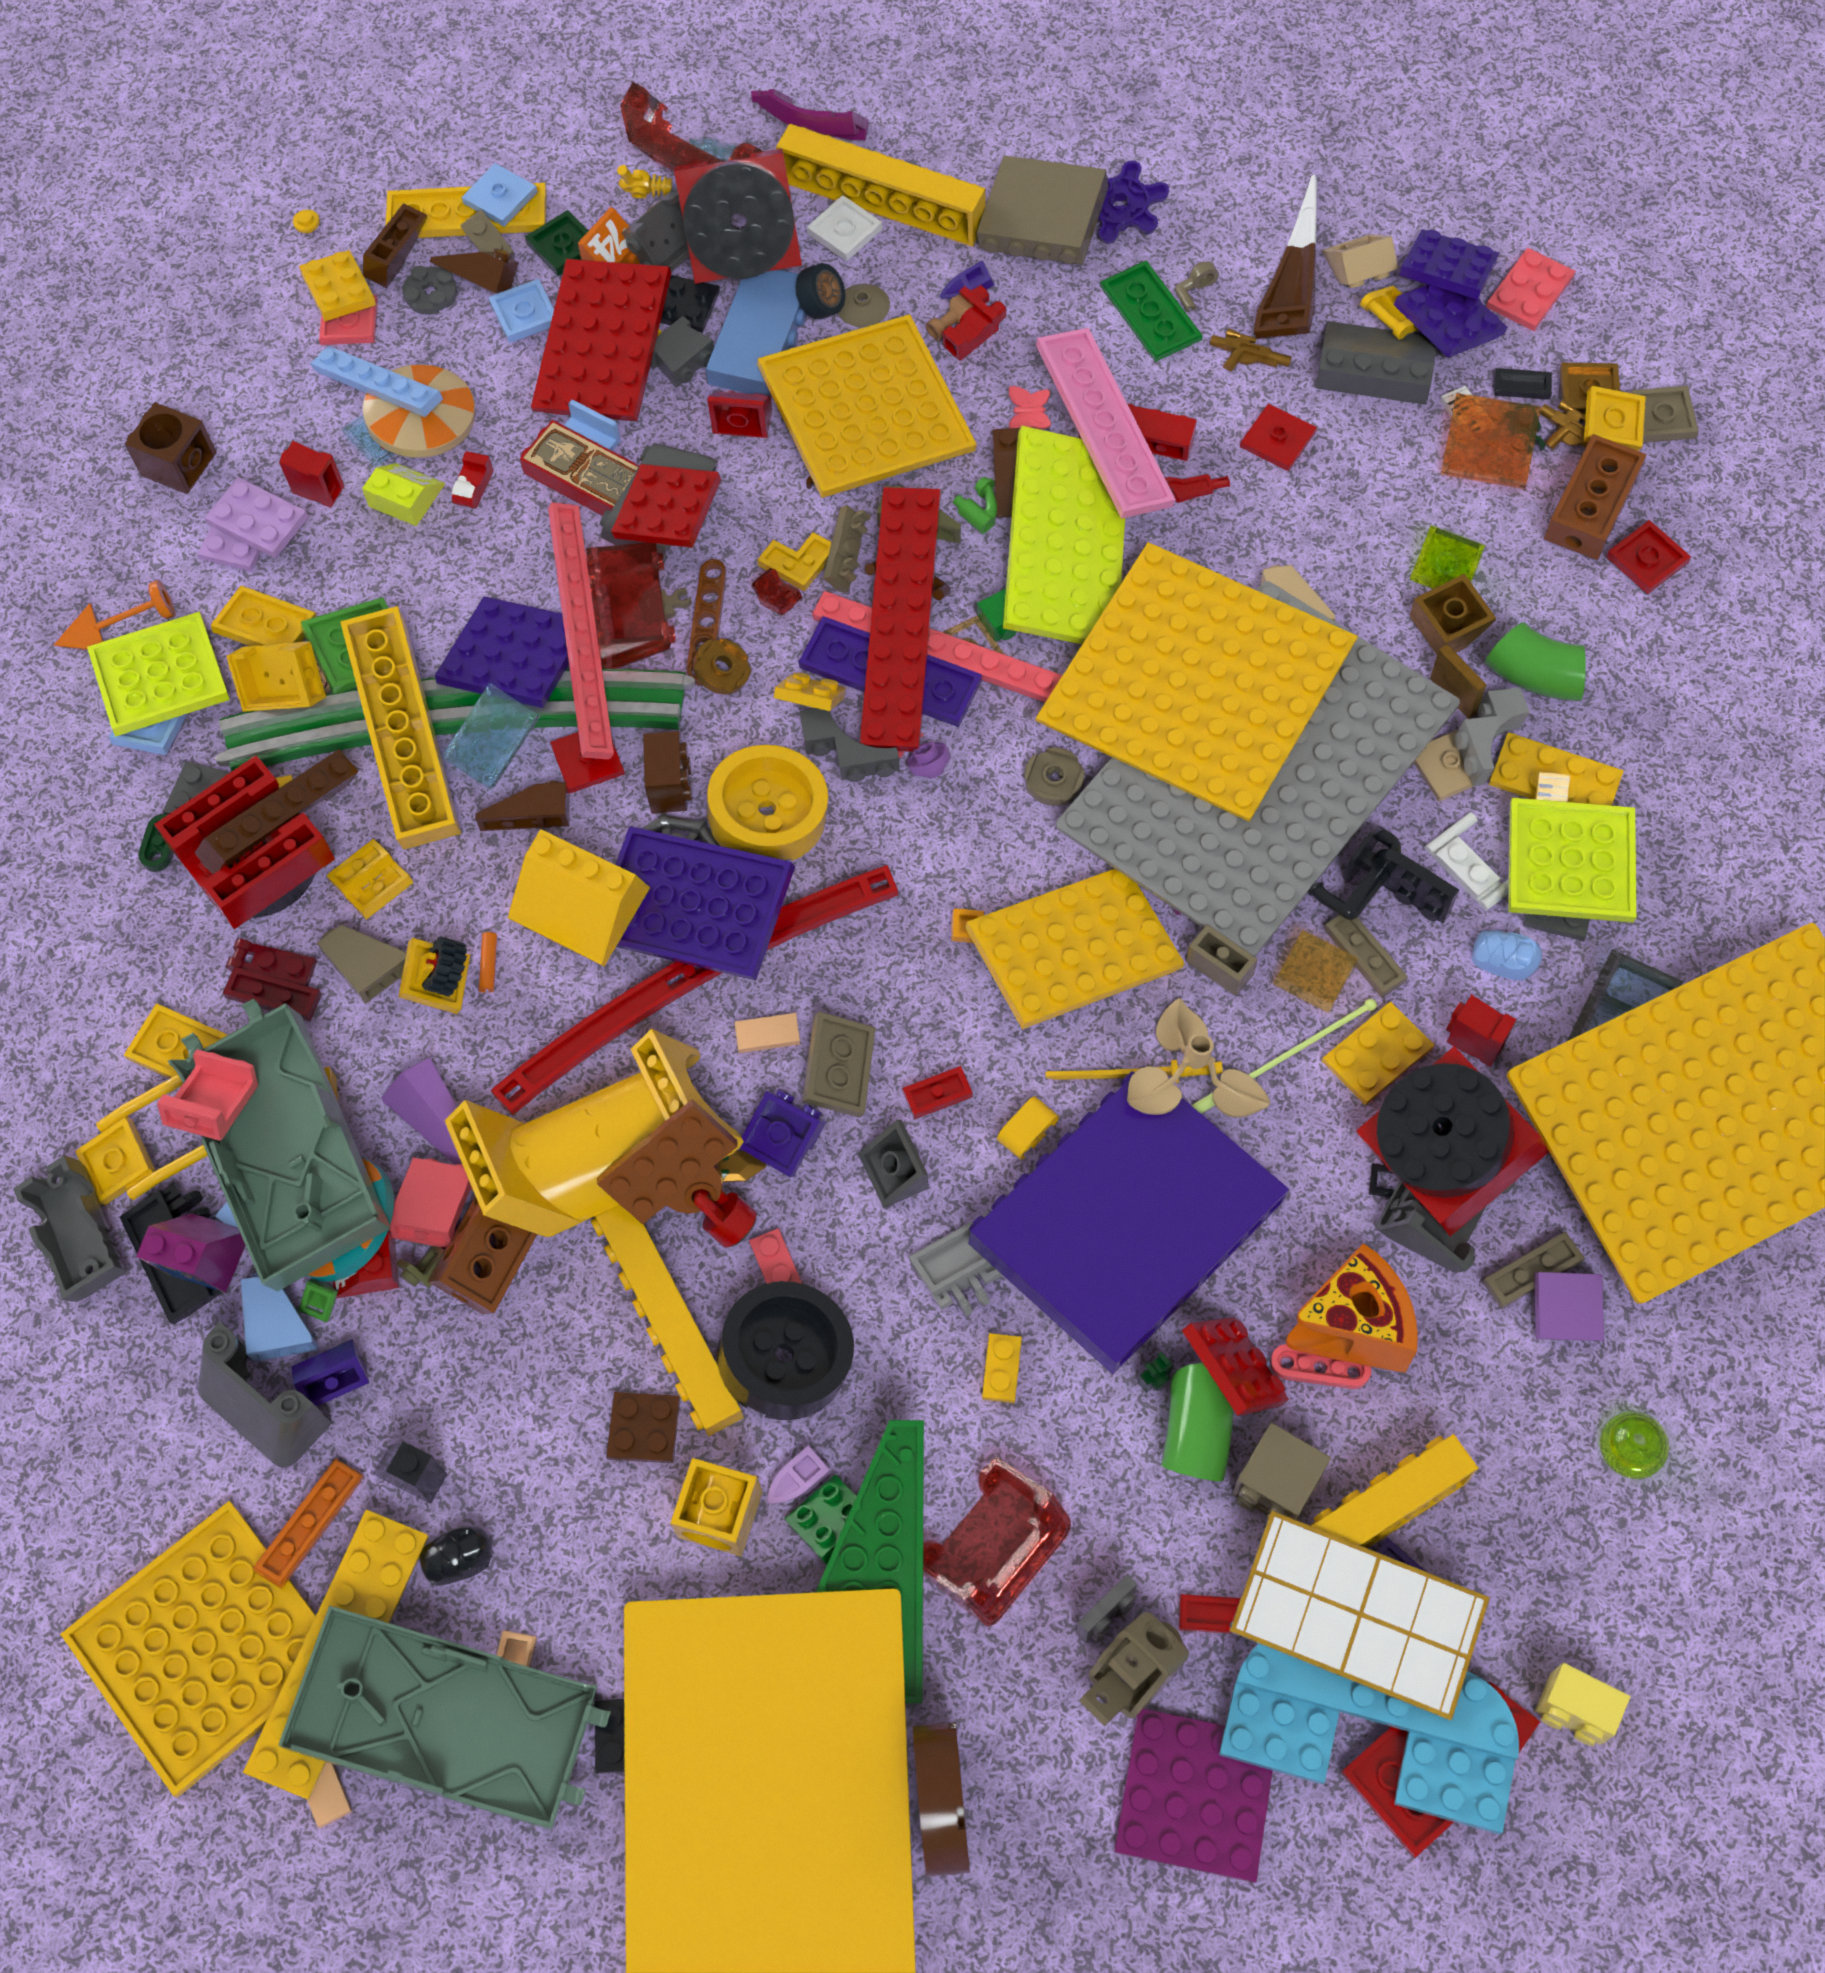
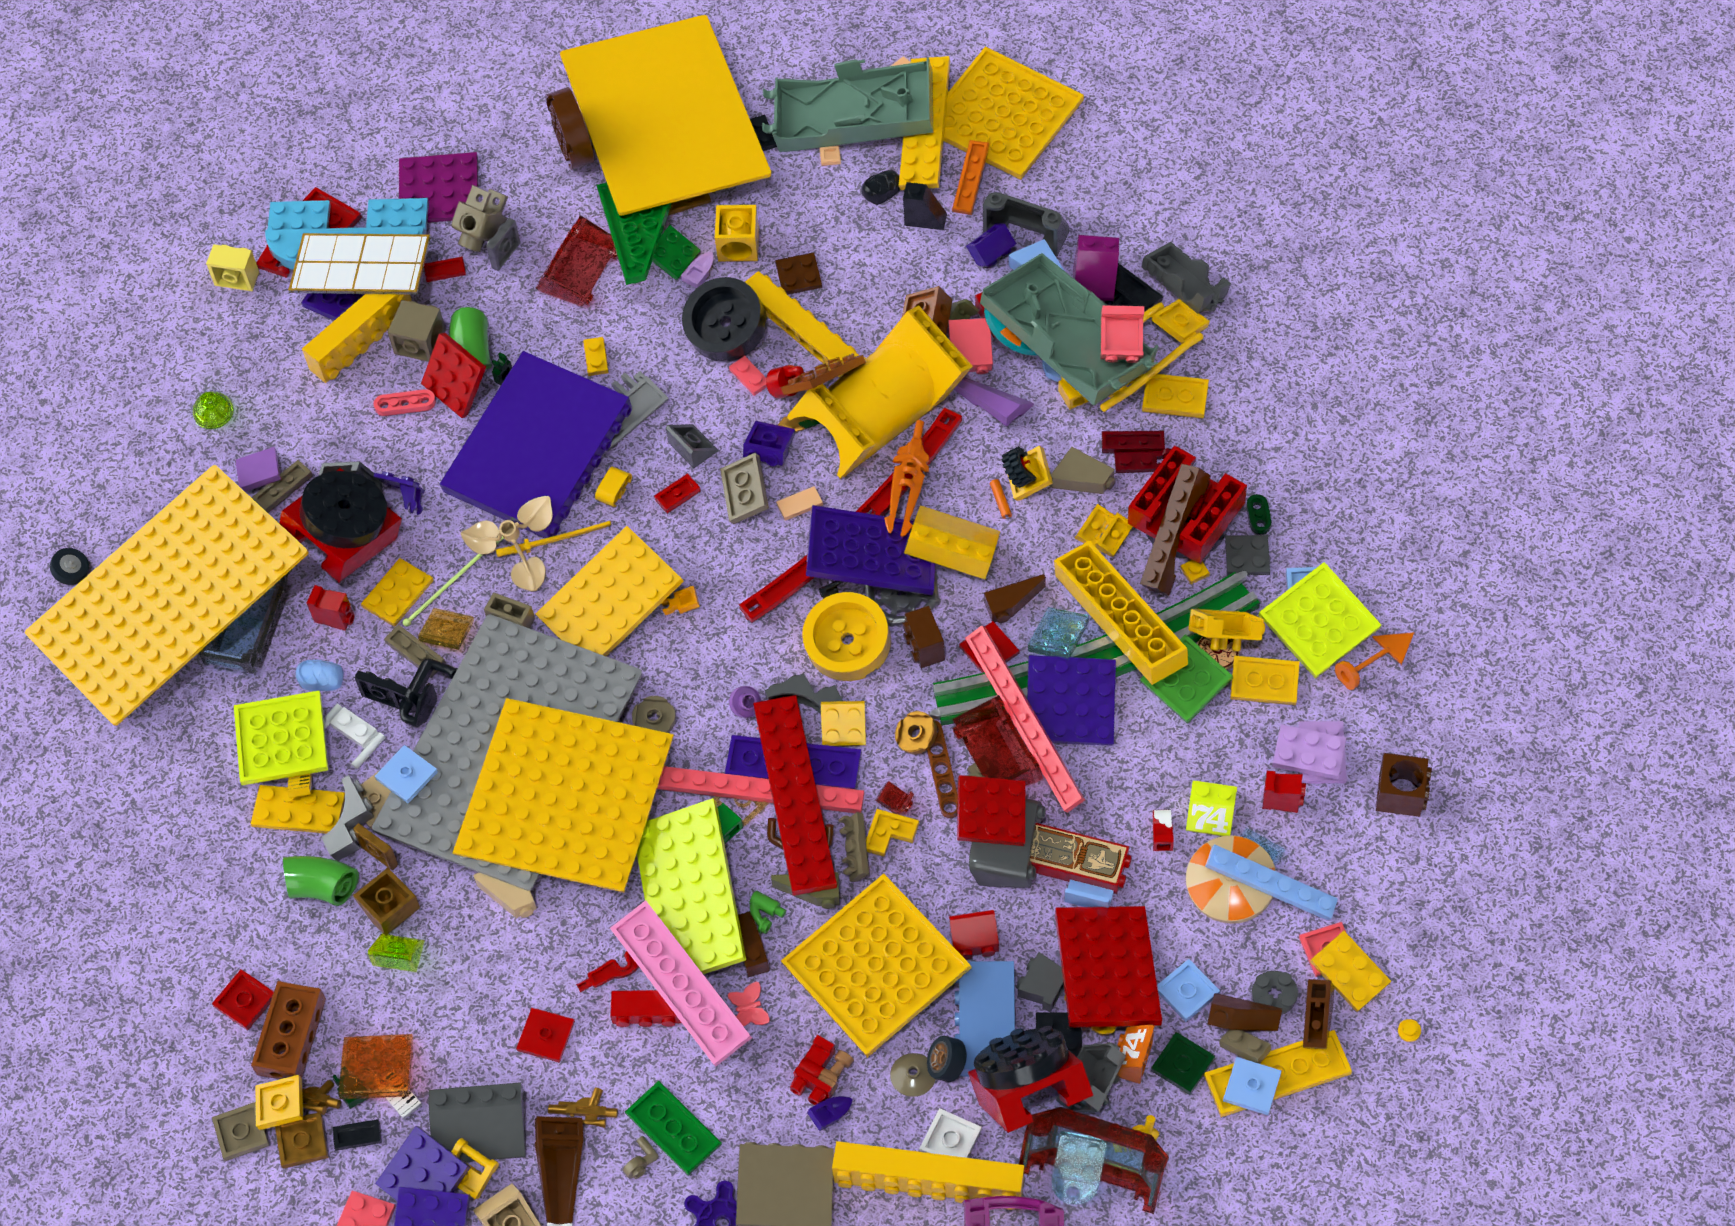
camera: 165 degrees right, 5 degrees down
(586, 1031) = (912, 461): none -> orange sword
(1348, 1203) = (409, 488): none -> dark purple plate
(1359, 1316) = (386, 422): piece -> none
(1404, 748) = (406, 774): none -> light blue plate

